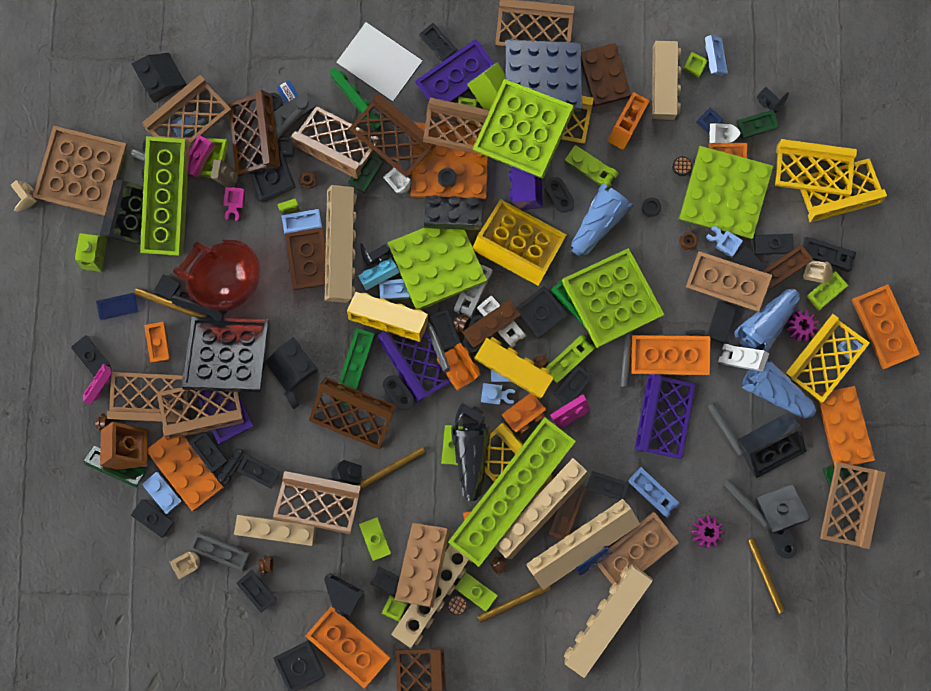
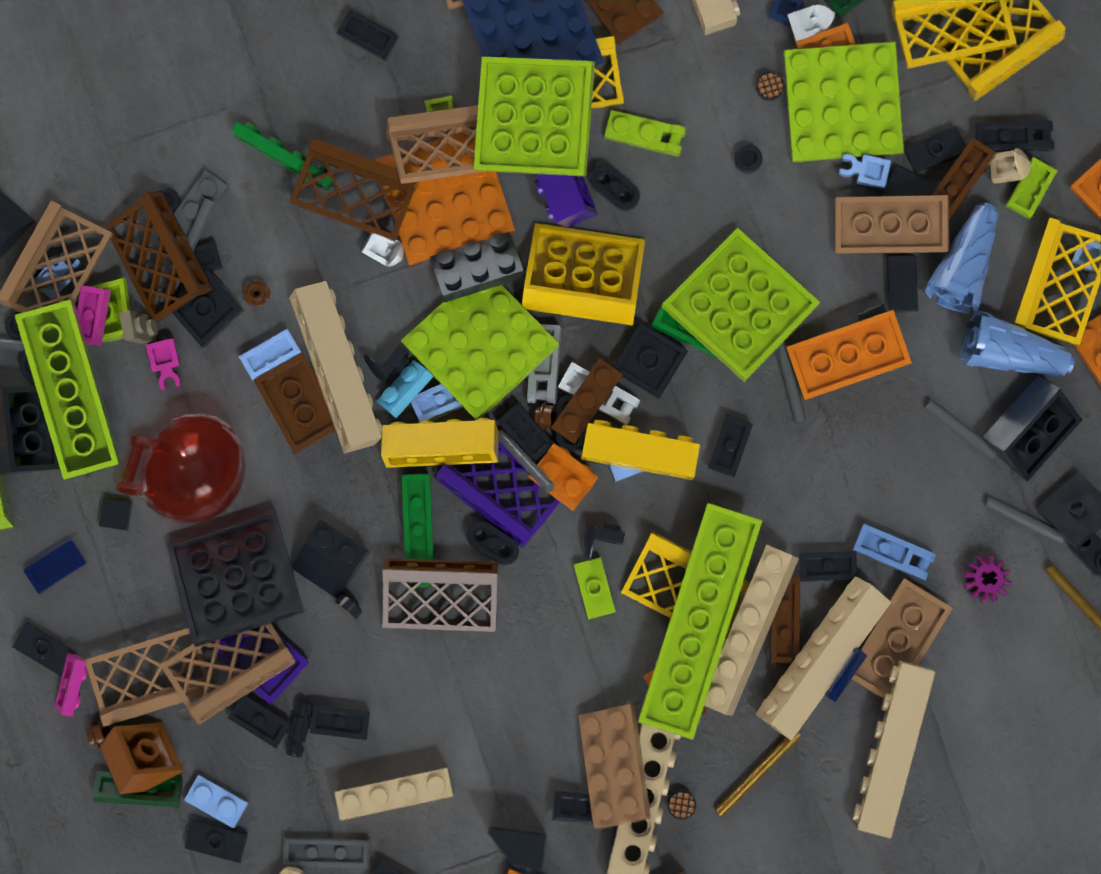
camera: 20 degrees left, 0 degrees up
(157, 342) = (131, 596): orange plate -> none
(166, 302) = (126, 536): pearl gold bar -> none
(184, 300) = (149, 522): black plate -> none
(185, 470) = (237, 759): orange plate -> none
(266, 565) = (398, 847): reddish brown plate -> none
(287, 91) = (180, 179): sticker -> none
(288, 206) = (244, 340): lime tile -> none
(317, 486) = (429, 713): medium nougat fence -> none
(324, 152) = (265, 246): medium nougat fence -> none
(347, 472) = (463, 678): black plate -> none
(368, 173) = (334, 253): dark green plate -> none
(375, 538) = (535, 756): lime plate -> none
(379, 61) = (294, 90): white sticker -> none
(392, 467) = (520, 652): pearl gold bar -> none
(394, 609) = (597, 841): lime tile -> none
(447, 177) = (450, 220): black tile -> none
(451, 76) = (410, 69): dark purple plate -> none
(471, 453) = (625, 591): black cone -> none
(476, 591) = (700, 777): lime plate -> none
(486, 85) = (460, 72): lime slope -> none
(493, 394) = (625, 498): light blue plate -> none
(498, 565) = (718, 730): reddish brown plate -> none
(523, 413) = (676, 507): orange bracket -> none
(541, 361) = (674, 428): reddish brown plate -> none
(569, 358) = (712, 410): lime plate -> none
(570, 412) = (740, 483): dark pink plate -> none
(603, 214) = (685, 195): medium blue cone -> none
(628, 121) = (673, 50): orange slope -> none
(649, 411) = (848, 448): dark purple fence -> none
(688, 236) = (821, 182): reddish brown plate -> none
(743, 357) = (950, 322): white plate -> none
(806, 321) = (1020, 242): magenta gear -> none

